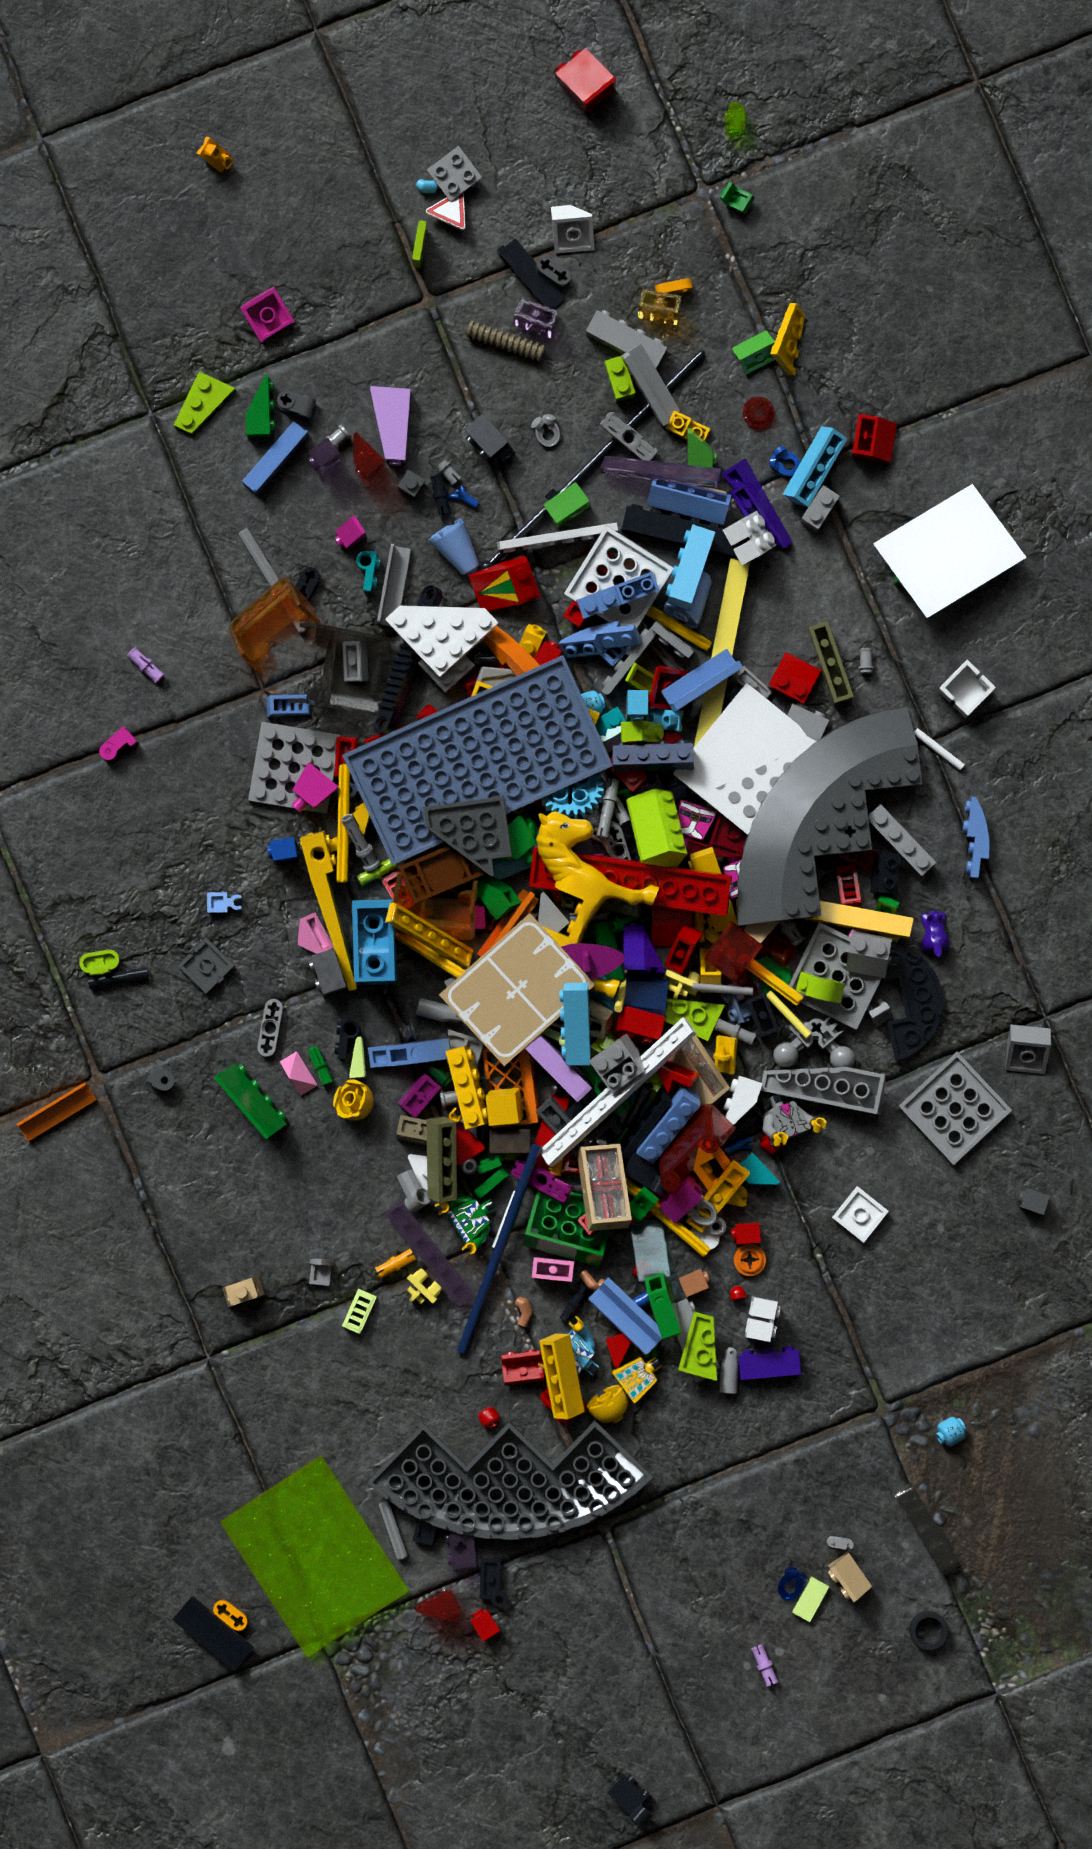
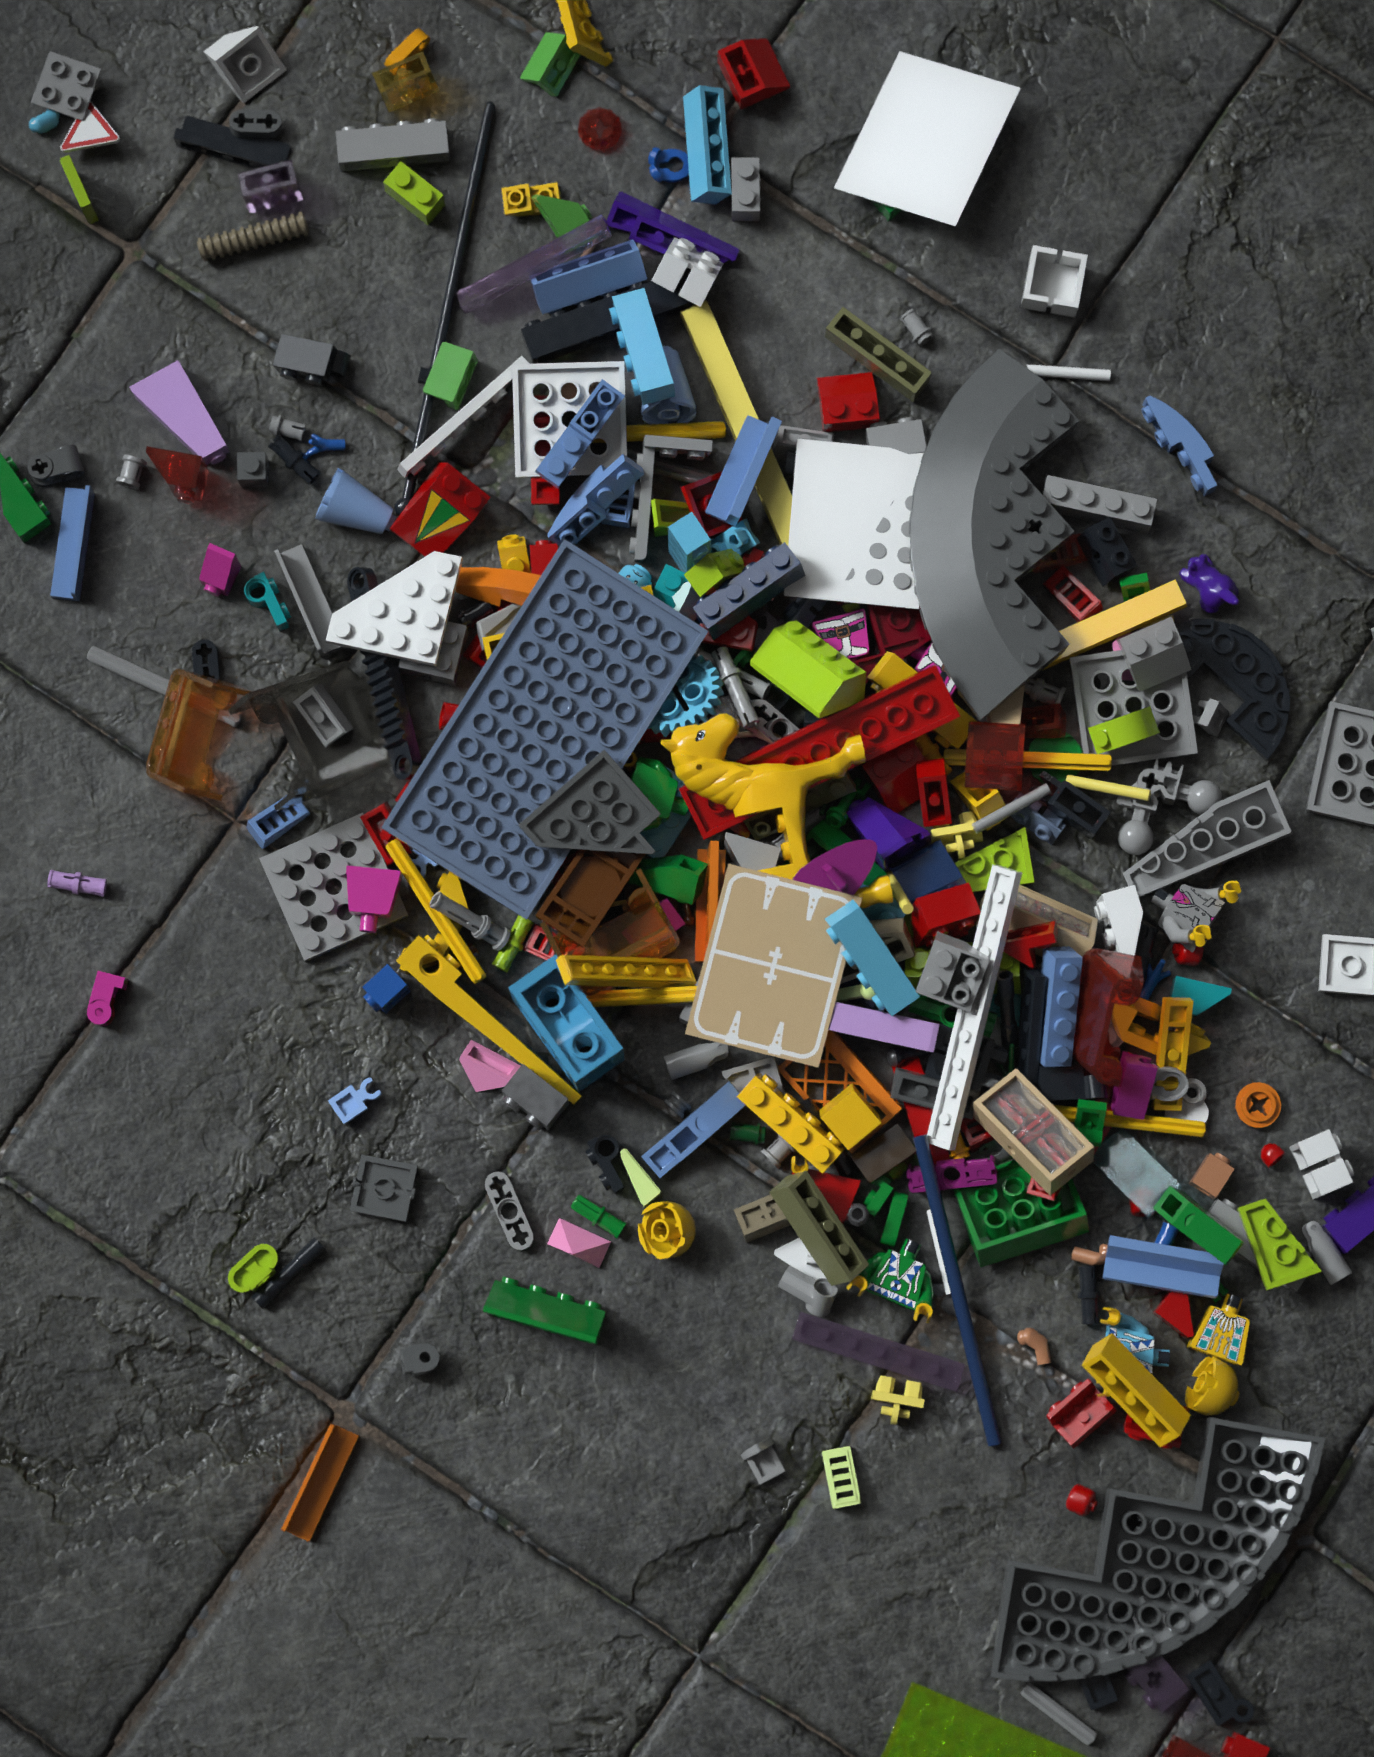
camera: 30 degrees left, 5 degrees down
(243, 1291) = (687, 1547): tan torso -> none
(324, 456) = (128, 501): clear purple brick -> none
(395, 1263) = (845, 1391): light orange pin -> none
(419, 1095) = (739, 1171): magenta hinge -> none
(537, 425) = (355, 308): light grey piece -> none
(552, 1269) = (1037, 1271): bright pink brick -> none
(617, 429) = (451, 251): light grey piece -> none
(650, 383) = (453, 174): light grey panel -> none
(725, 1054) = (1066, 882): yellow hips -> none
(734, 1031) = (1058, 850): light grey pin -> none
(746, 1233) = (1233, 1076): red brick -> none

